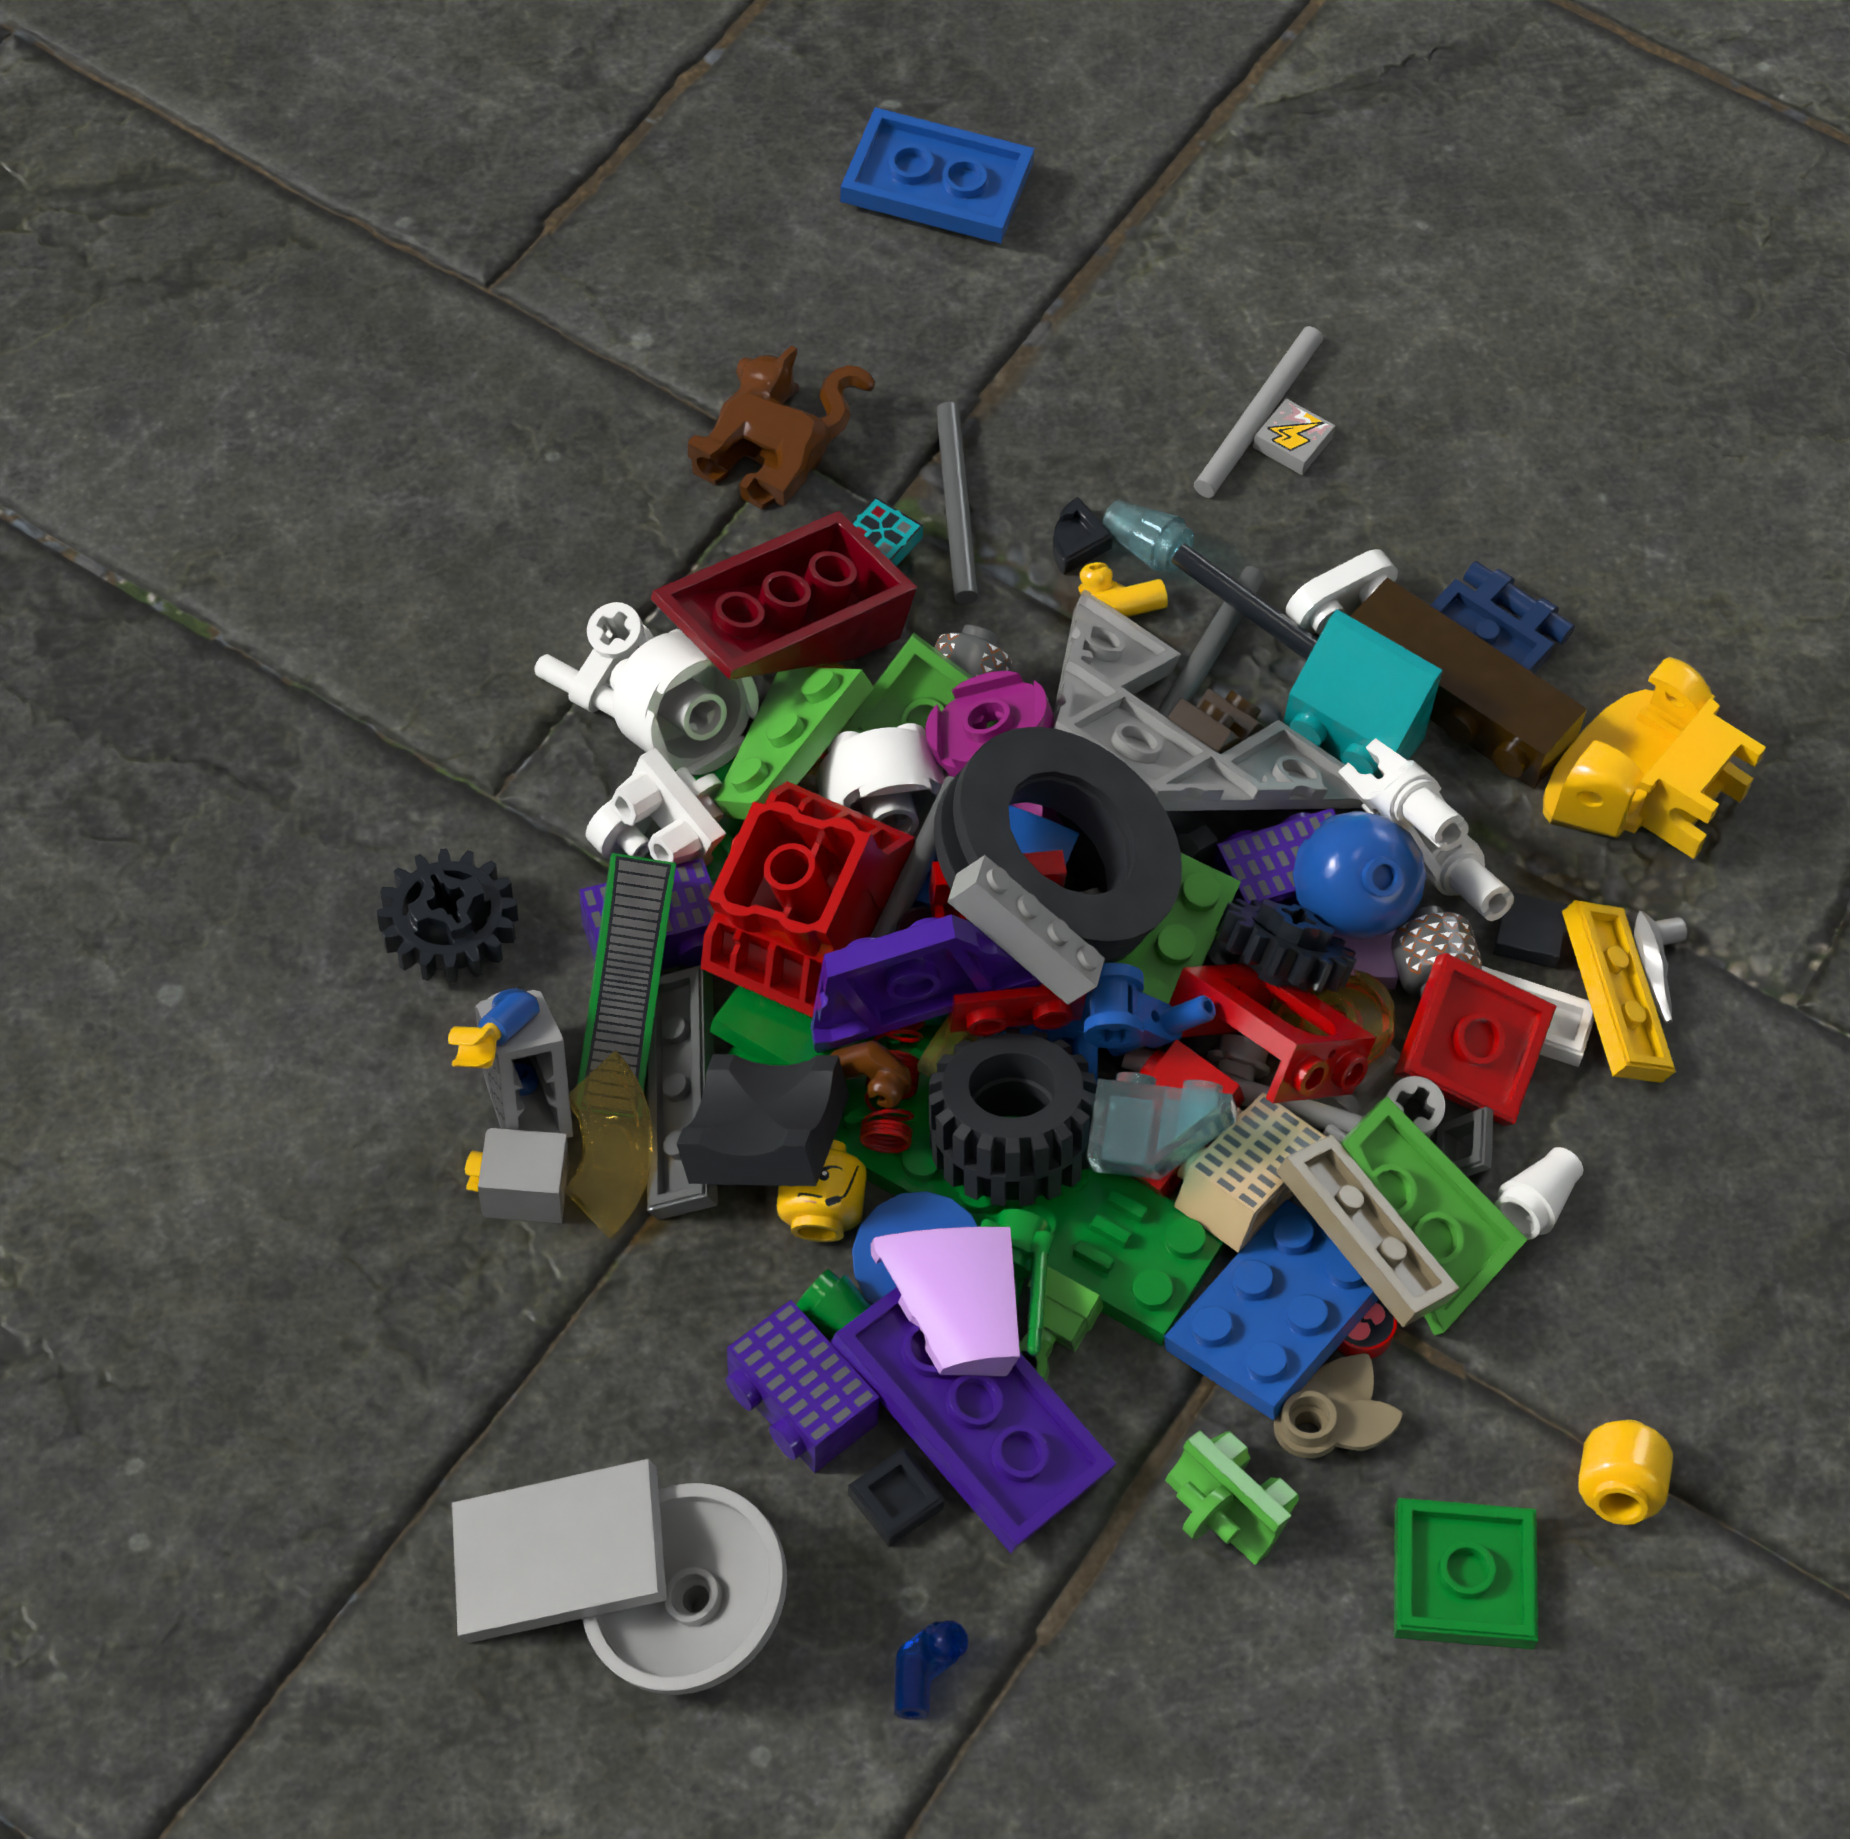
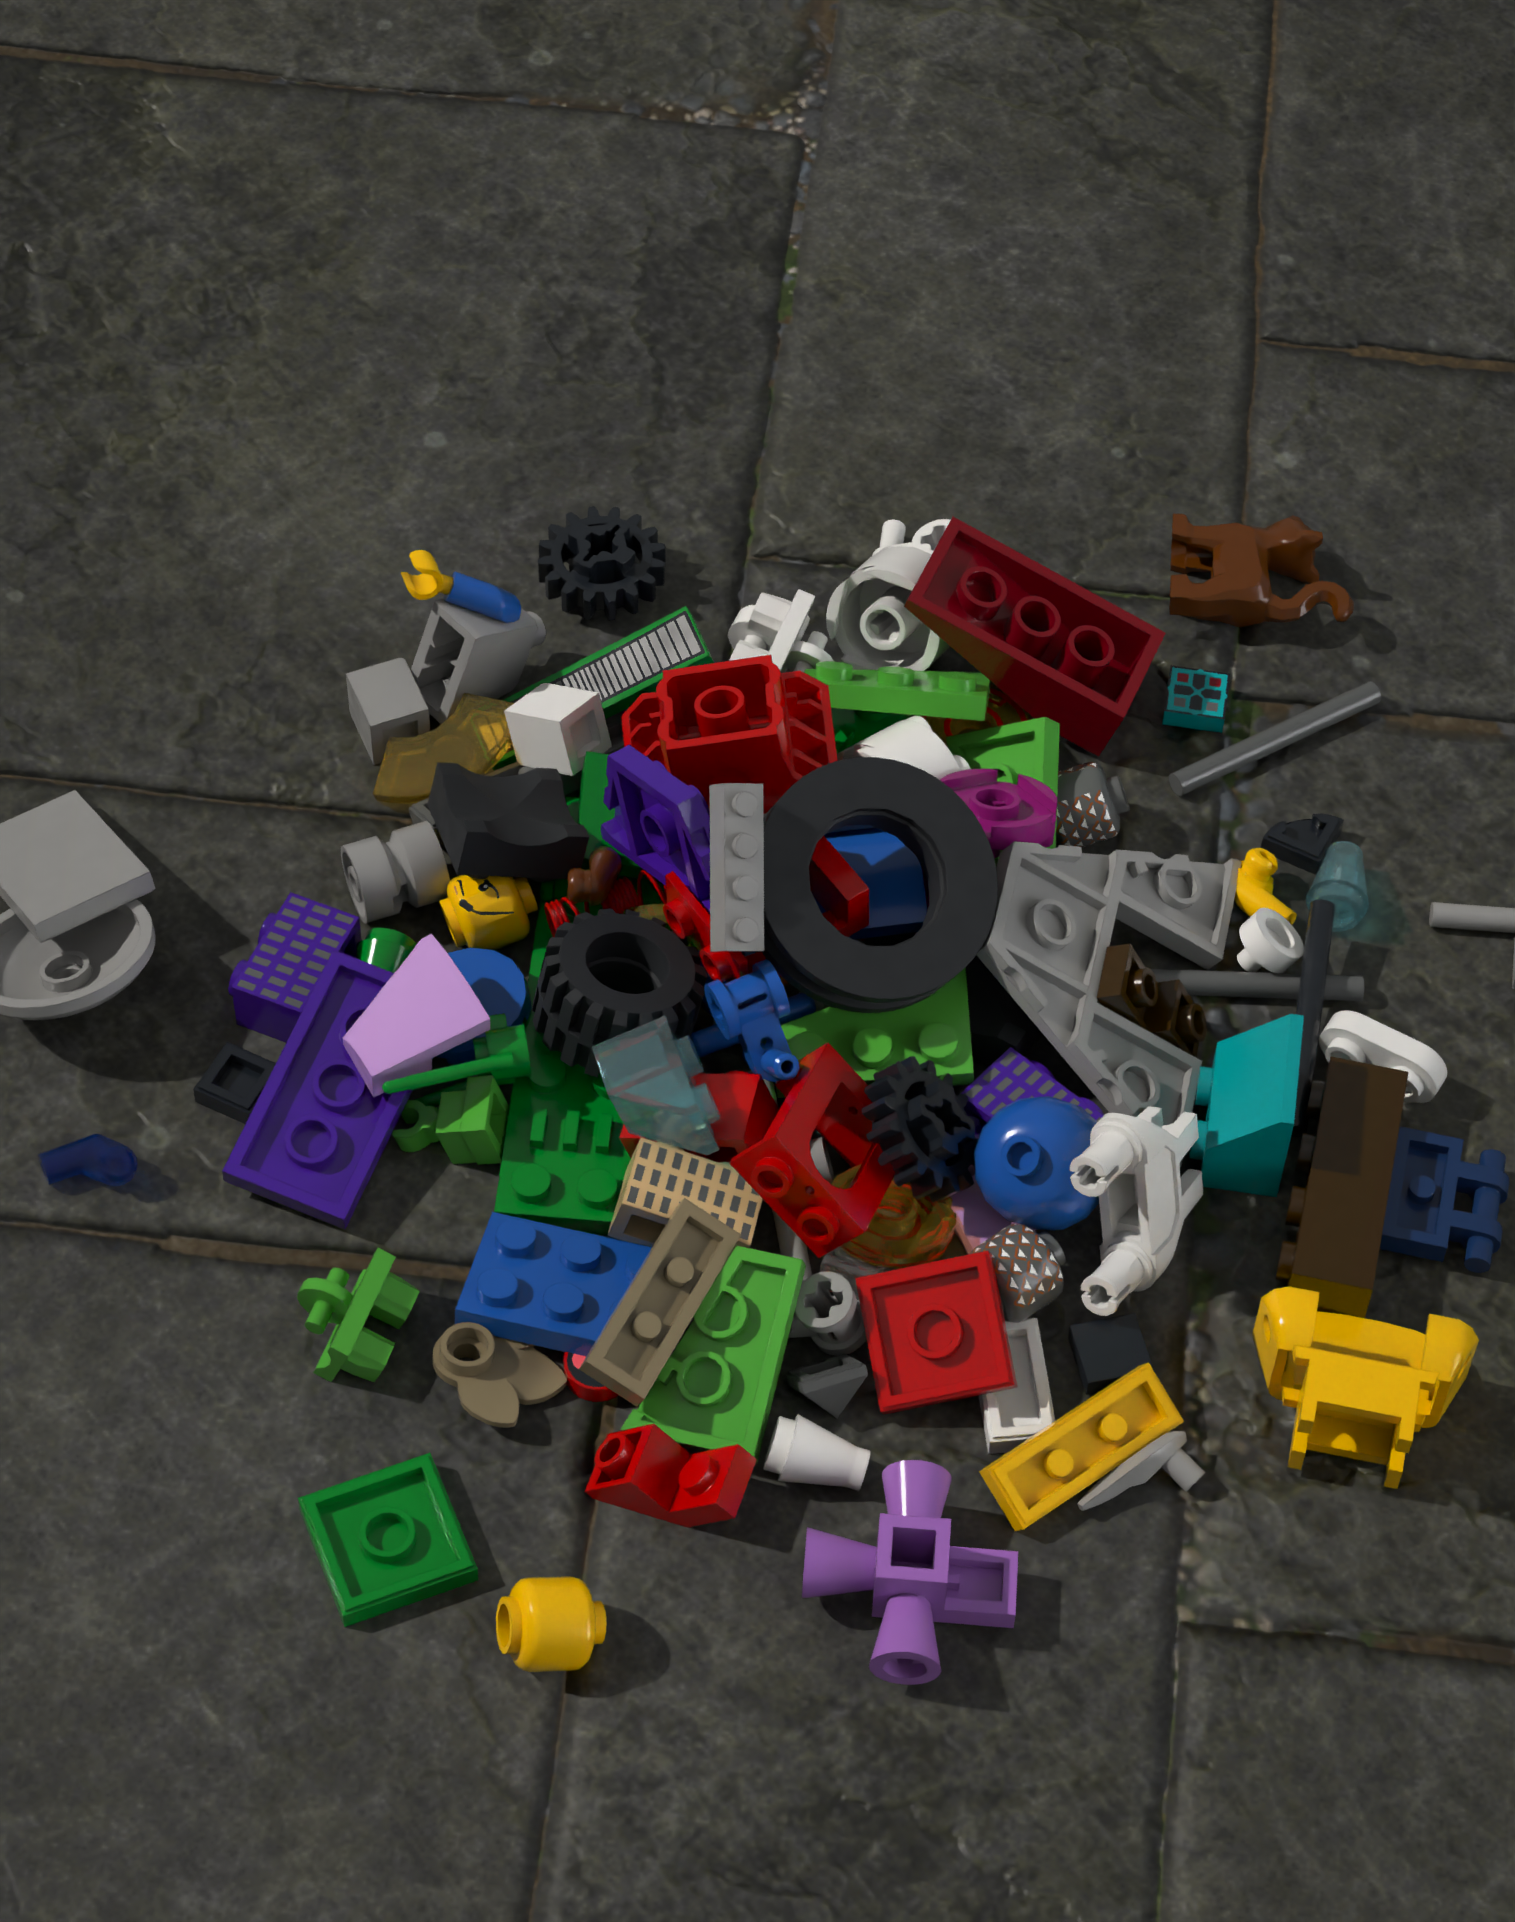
camera: 65 degrees right, 5 degrees down
(658, 1034) = (557, 727): none -> white panel
(736, 1250) = (395, 872): none -> light grey wheel
(1186, 611) = (1269, 942): none -> white tile
(1511, 1315) = (659, 1478): none -> red slope
(1695, 1172) = (914, 1574): none -> medium lavender brick

